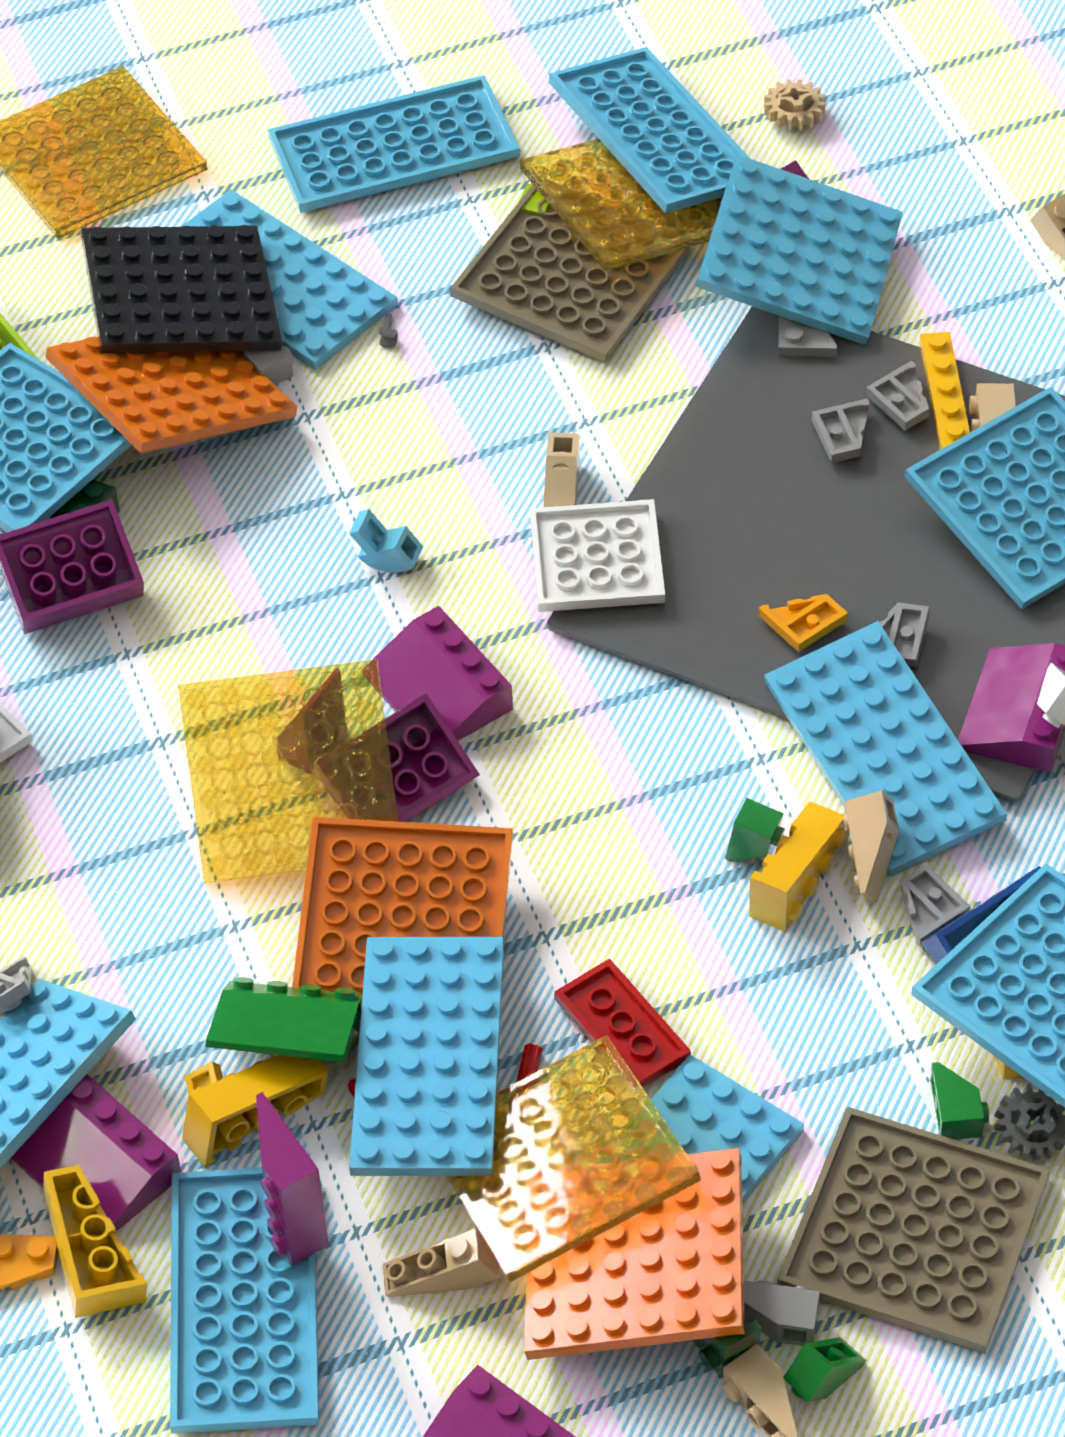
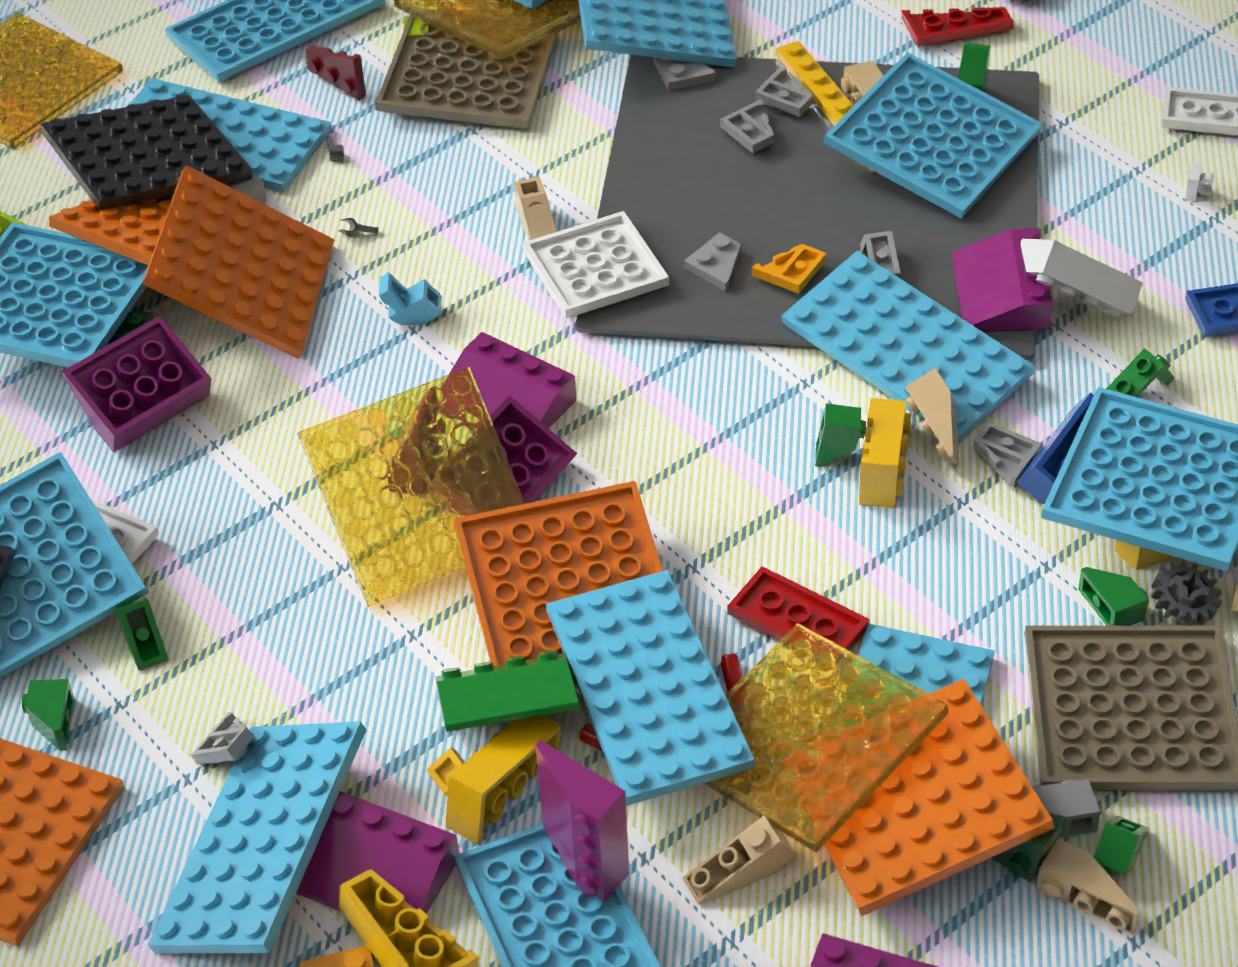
camera: 20 degrees left, 5 degrees down
(222, 454) = (239, 262): none -> orange plate
(369, 436) = (354, 226): none -> dark grey hand
(427, 234) = (337, 69): none -> dark red wing
(728, 586) = (715, 261): none -> light grey wing

